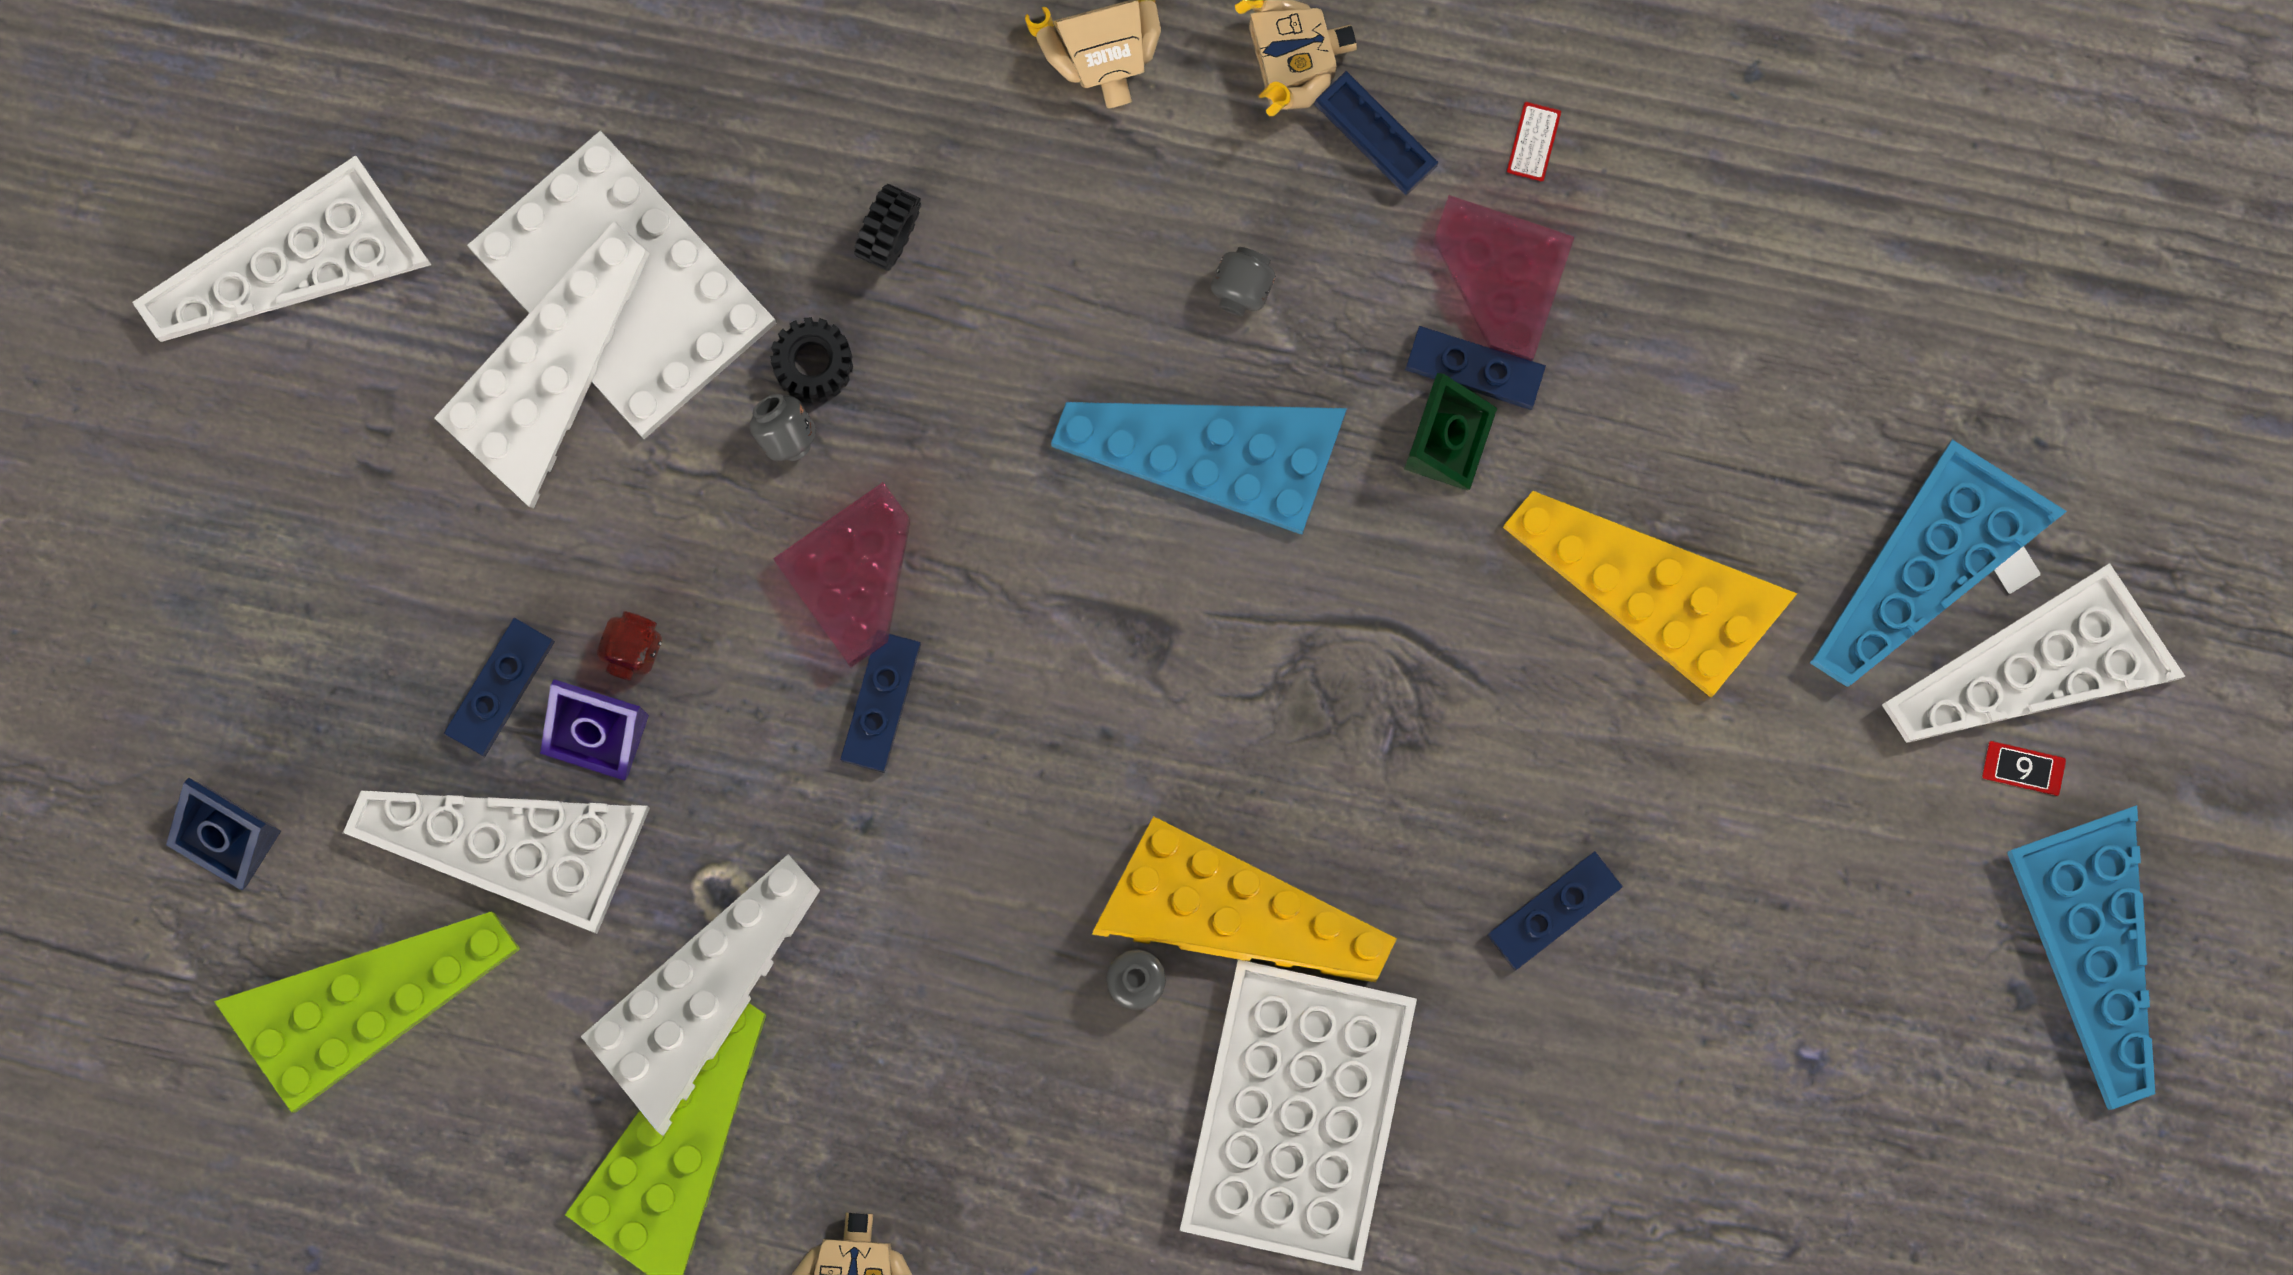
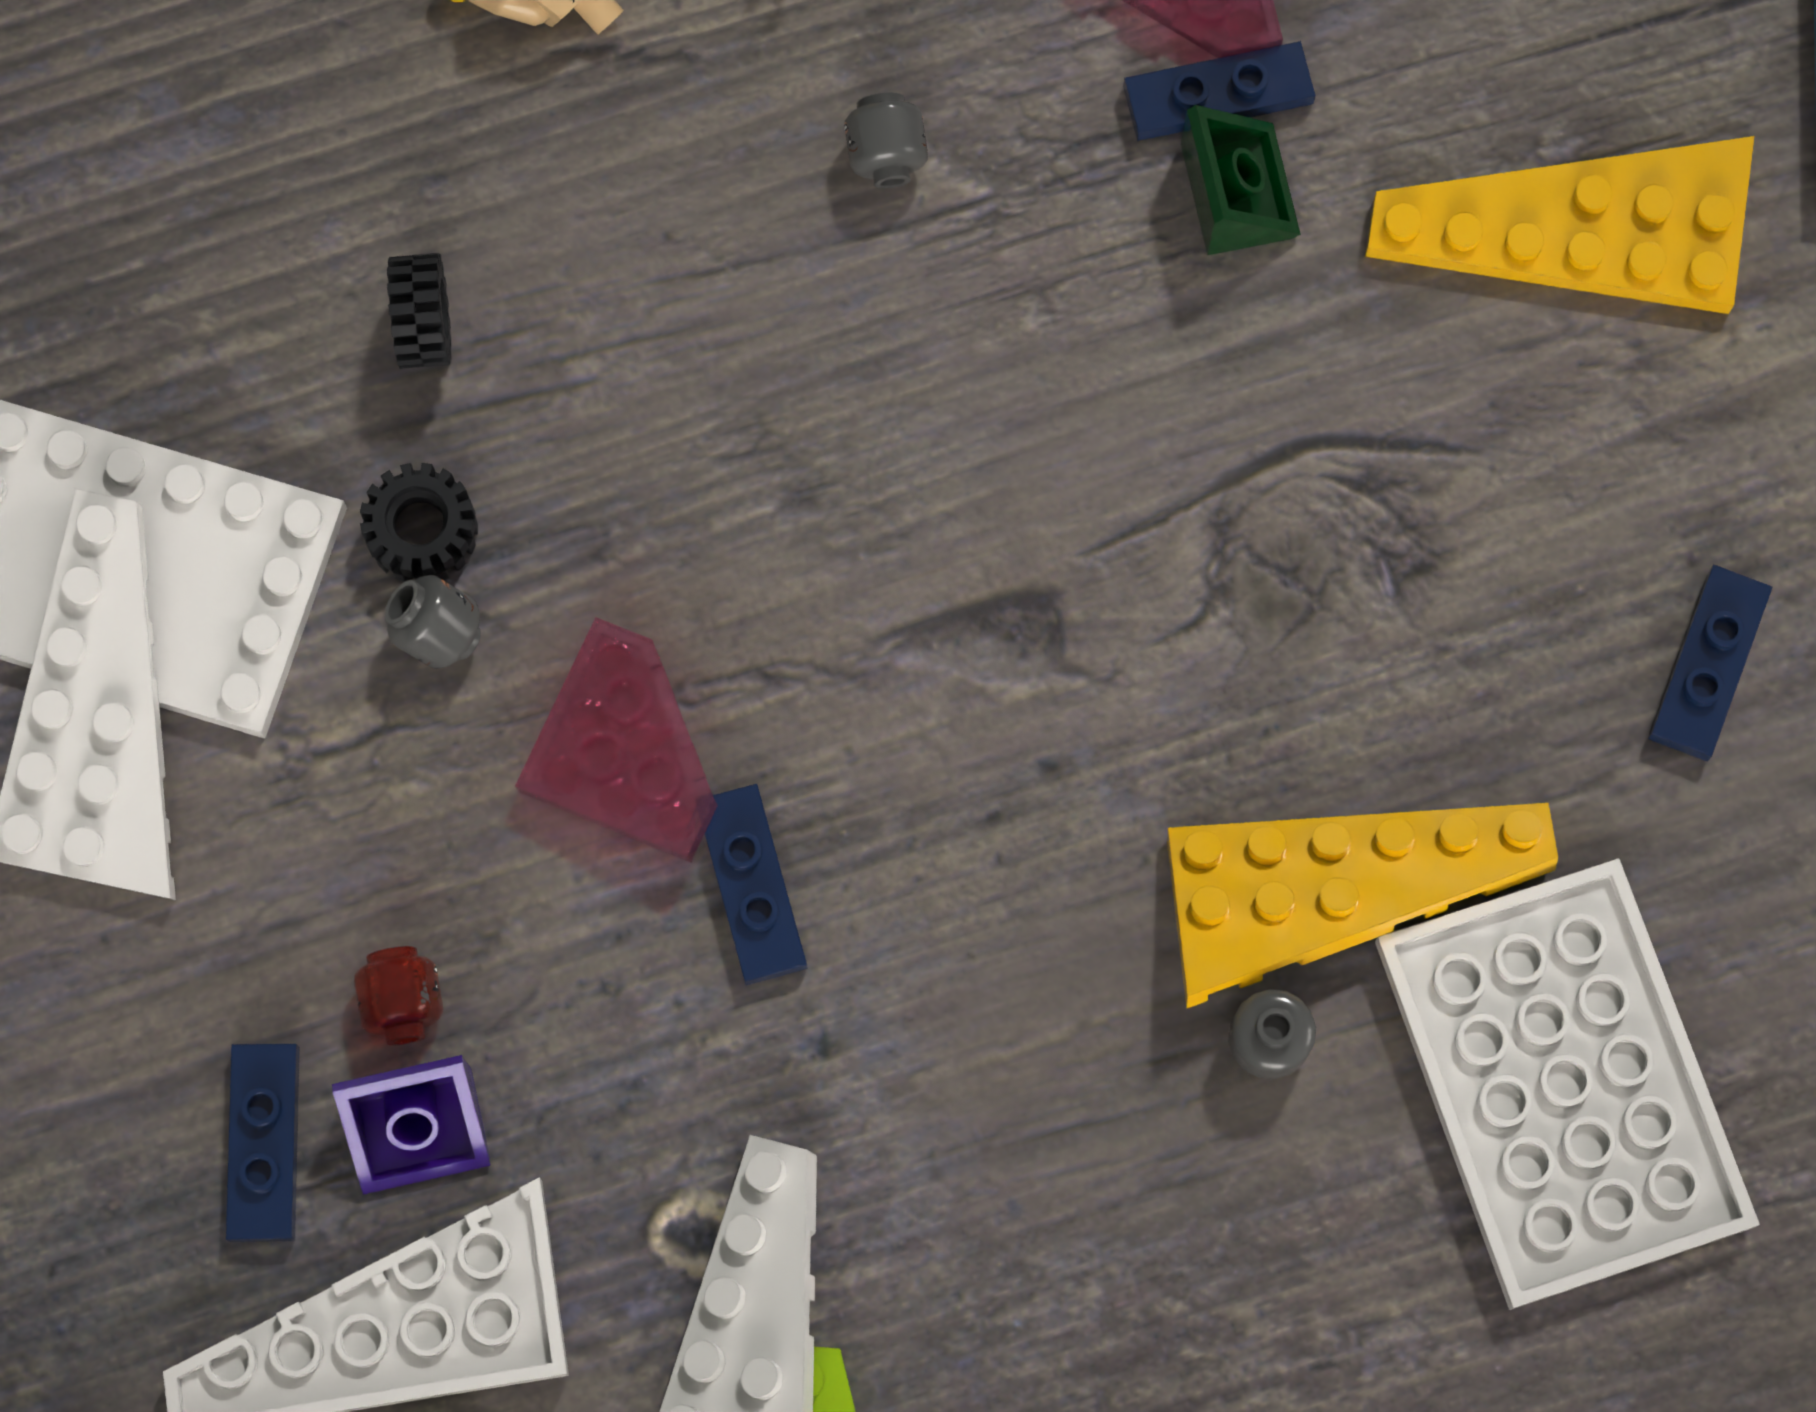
camera: 30 degrees left, 5 degrees down
(1233, 456) = (997, 353): dark azure wing -> none

